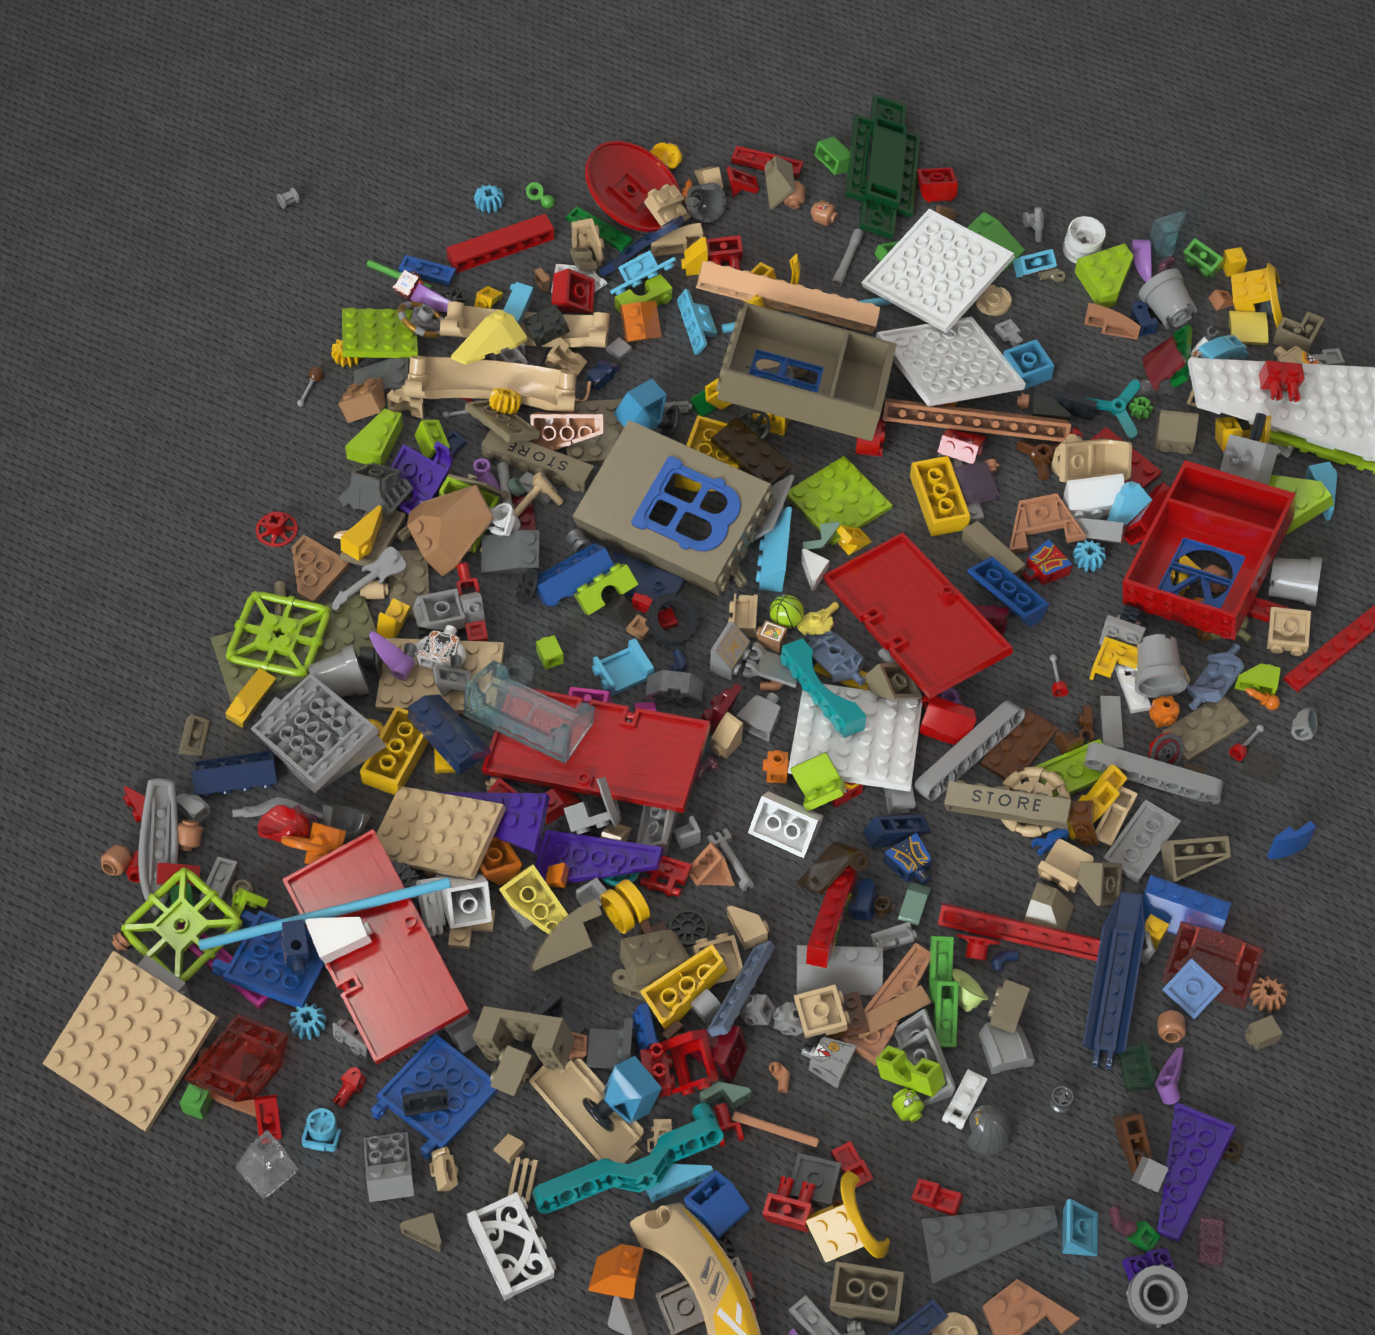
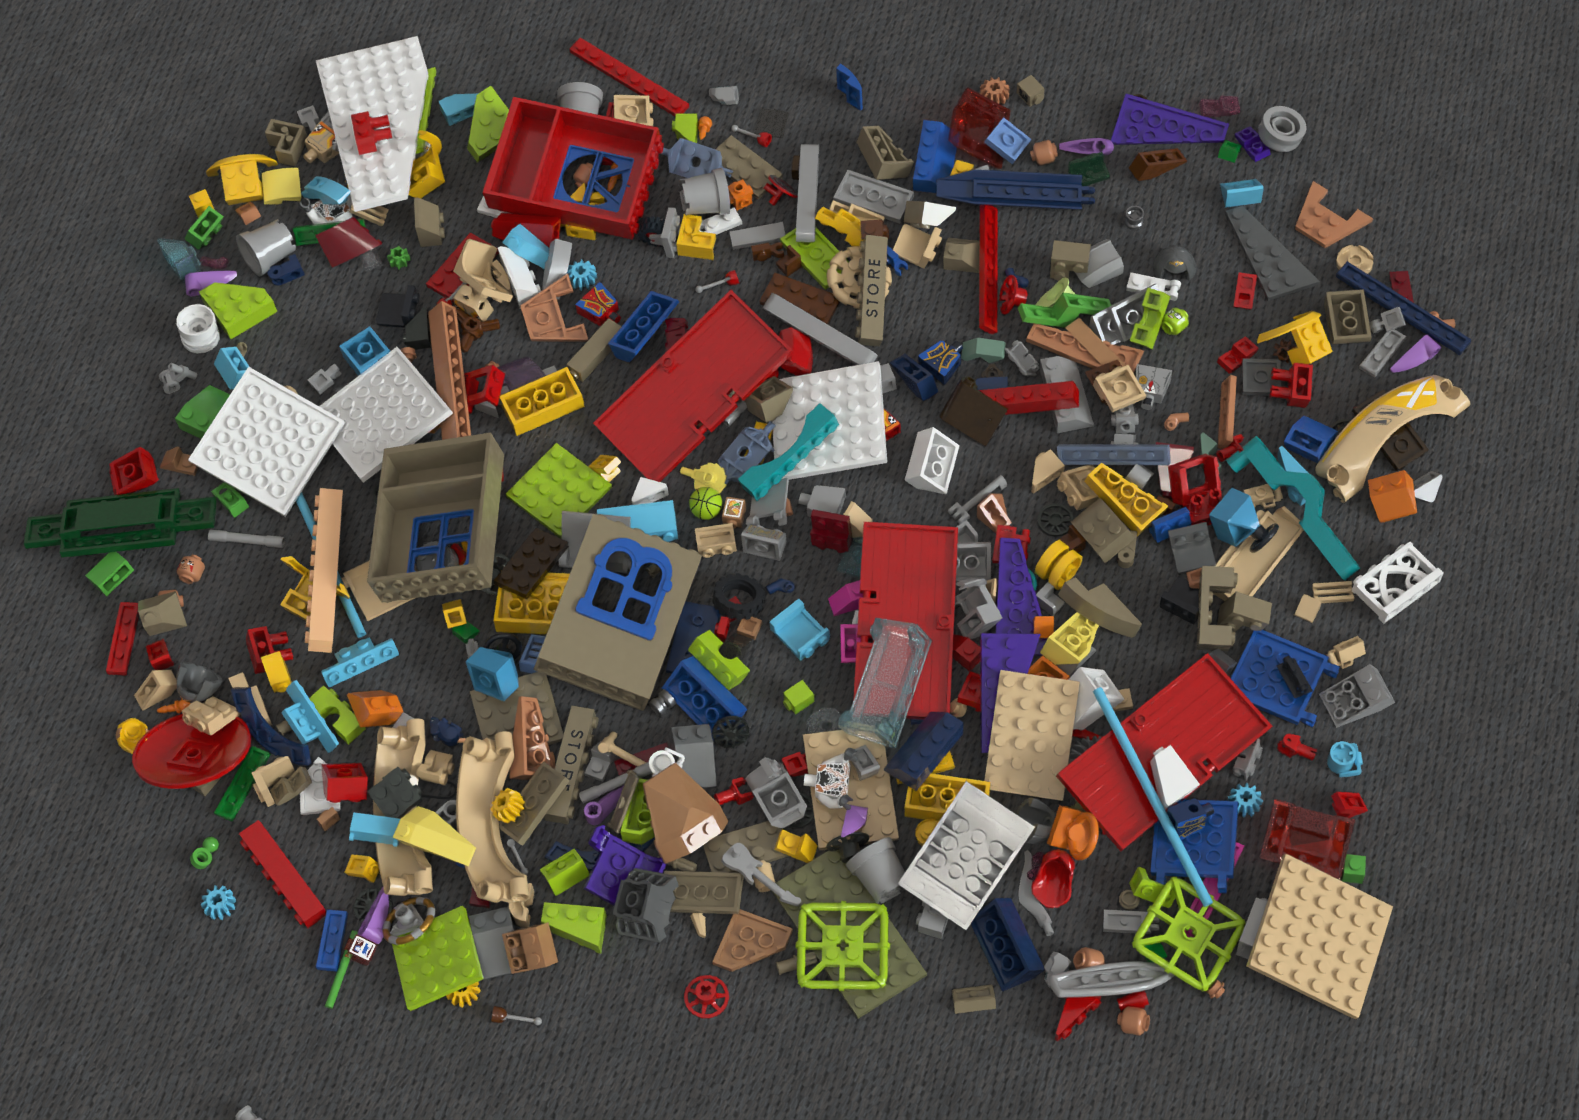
camera: 95 degrees left, 5 degrees up
(166, 870) = (1136, 961): red tile -> none
(250, 698) = (924, 950): yellow slope -> none
(266, 1165) = (1391, 794): clear slope -> none
(361, 537) = (713, 890): yellow slope -> none
(423, 1230) = (1404, 652): dark tan slope -> none
(432, 910) = (1095, 726): white hinge -> none
(516, 486) = (610, 773): sand green tile -> none
(675, 685) = (815, 579): flat silver brick -> none
(776, 766) = (876, 478): orange brick -> none
(818, 781) = (896, 432): lime bracket -> none
(828, 532) = (609, 483): sand green slope -> none
(1111, 322) = (295, 296): nougat slope -> none
(1120, 1225) = (1226, 165): clear pink arm -> none
(1121, 413) = (401, 275): teal piece -> none
(1150, 1174) = (1182, 148): light grey panel -> none
(1249, 456) = (461, 152): light grey piece -> none

